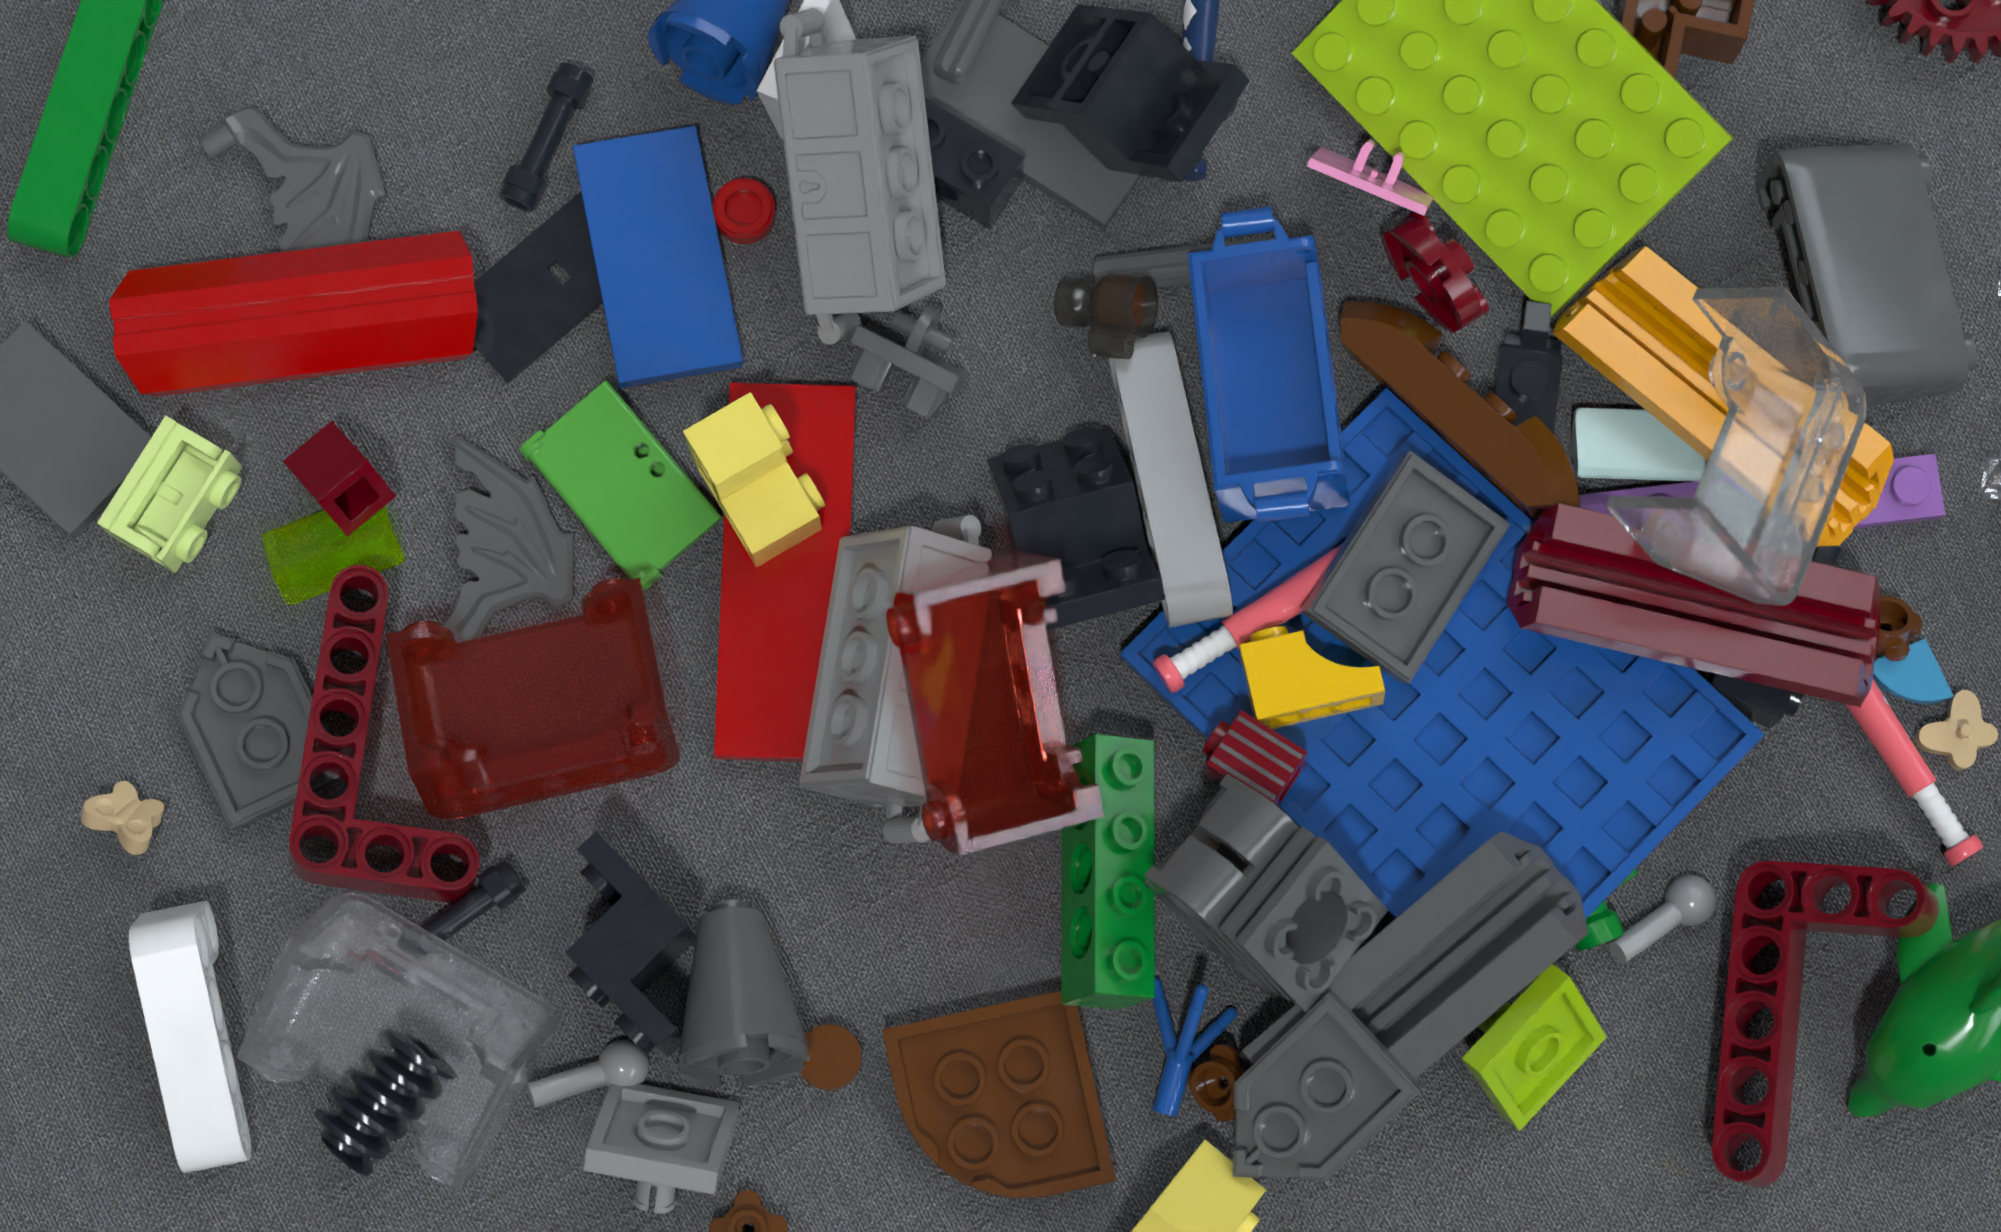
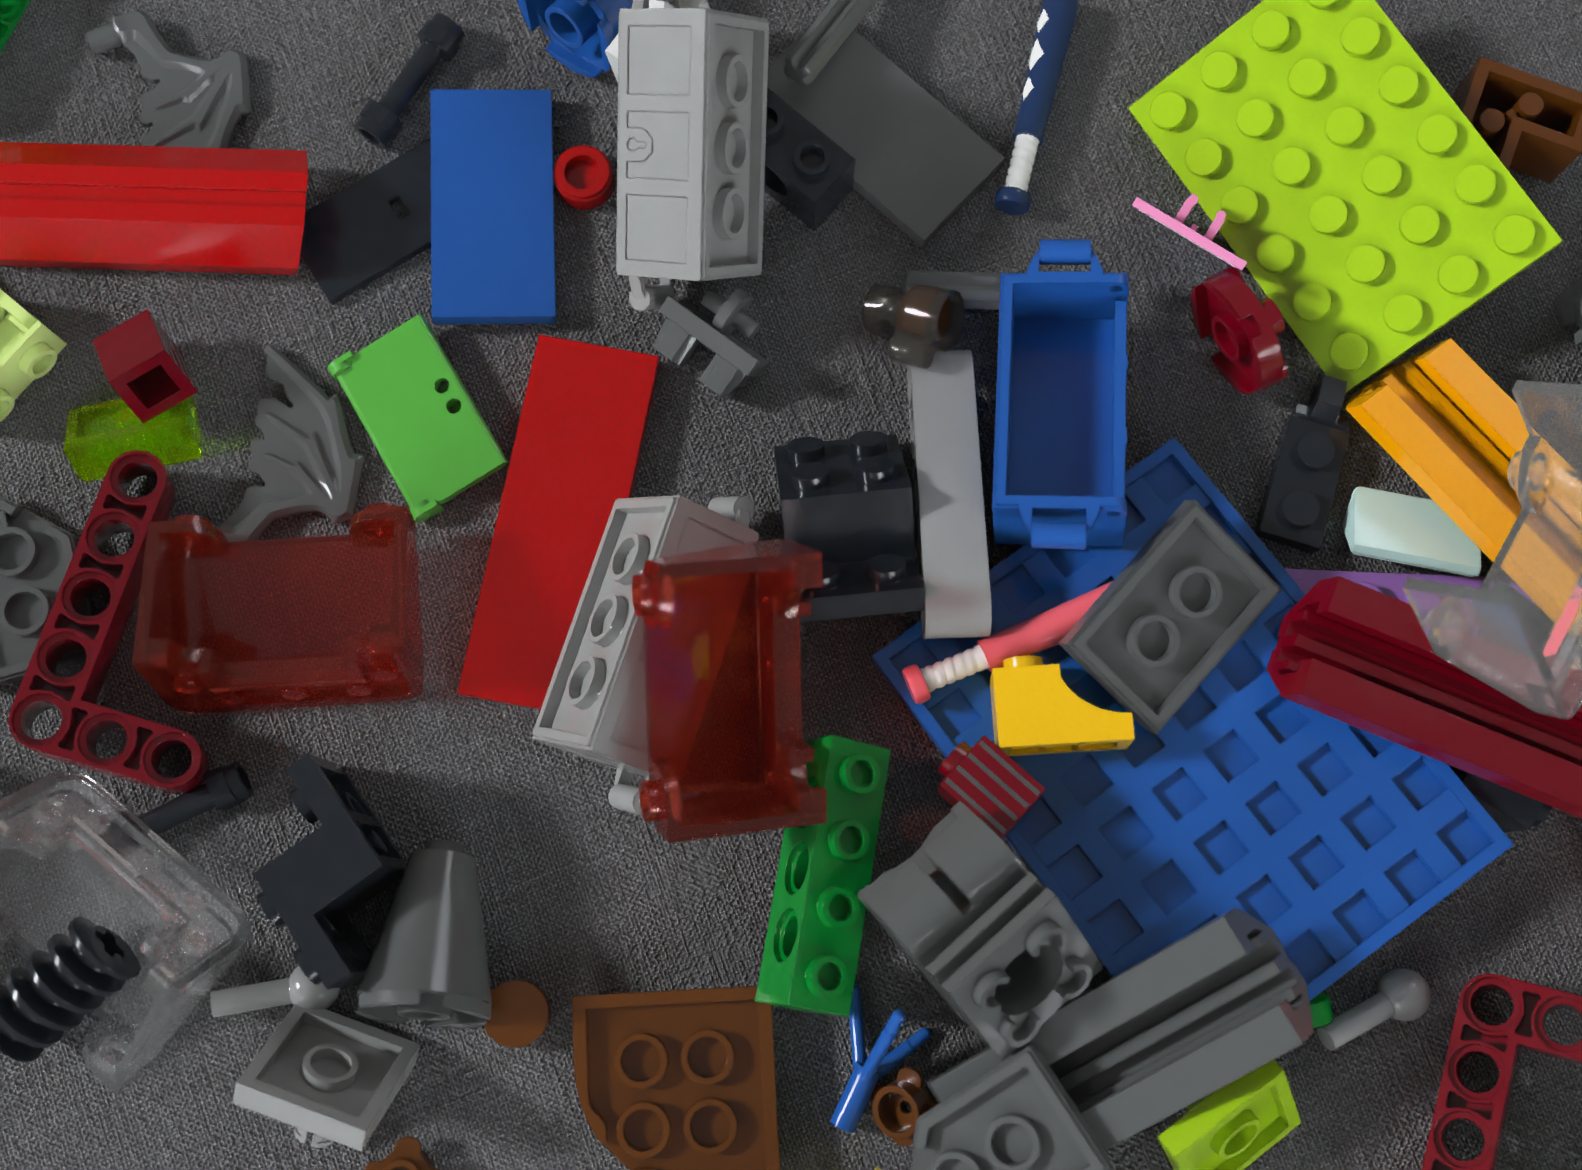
camera: 10 degrees right, 0 degrees up
(746, 468) = (531, 412): light yellow brick -> none
(1131, 92) = (971, 114): black bracket -> none
(1399, 353) = (1296, 527): reddish brown brick -> none

